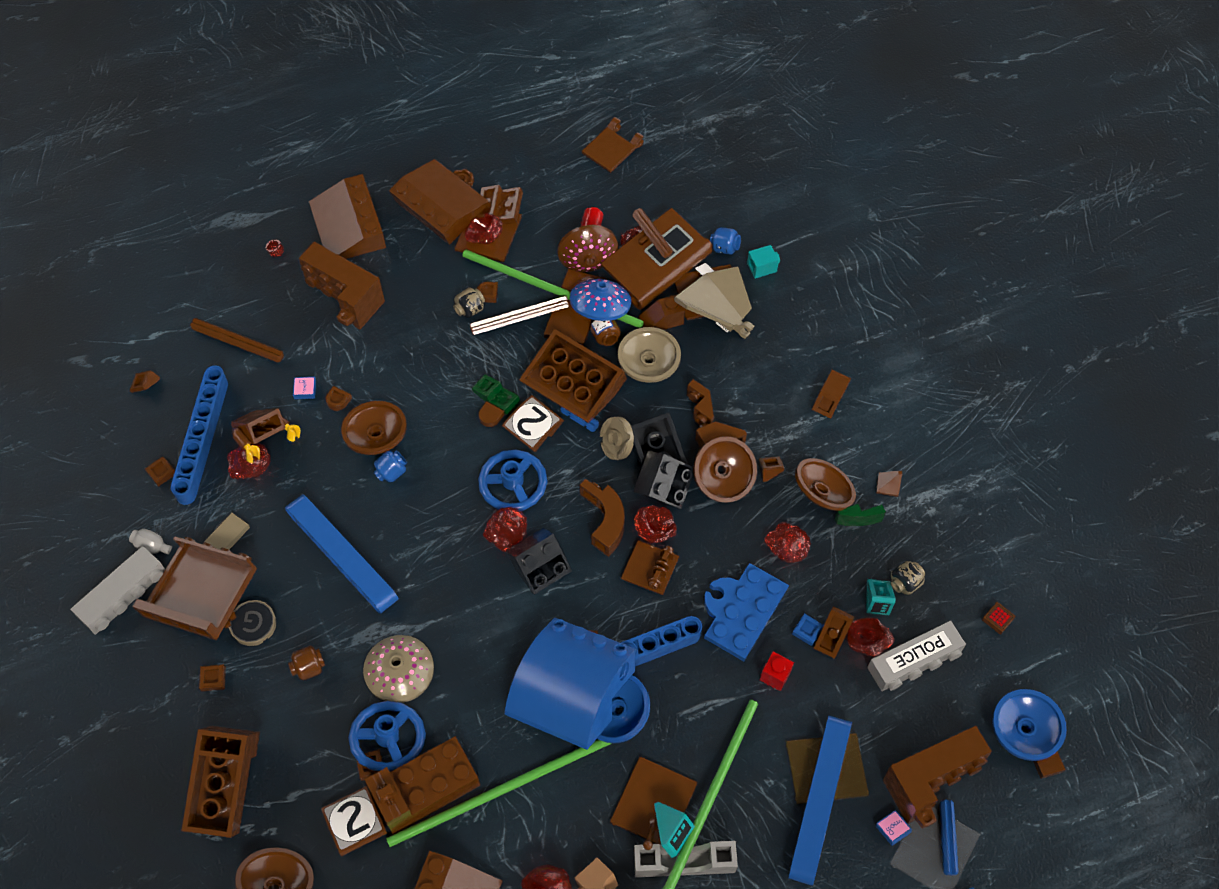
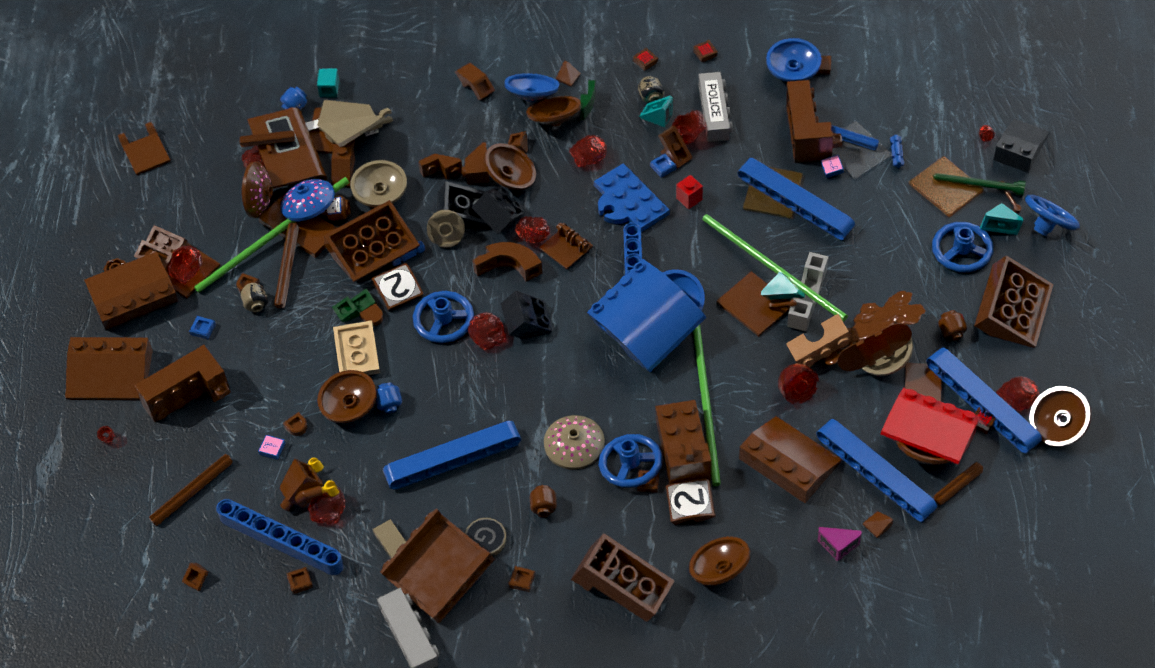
camera: 65 degrees left, 5 degrees down
(149, 540) = (368, 601): light grey plant -> none
(423, 276) = (202, 327): none -> blue tile
(440, 416) = (356, 348): none -> tan plate
(592, 216) = (220, 186): red brick -> none
(847, 450) = (531, 86): none -> blue dish
(952, 556) = (645, 59): none -> tile

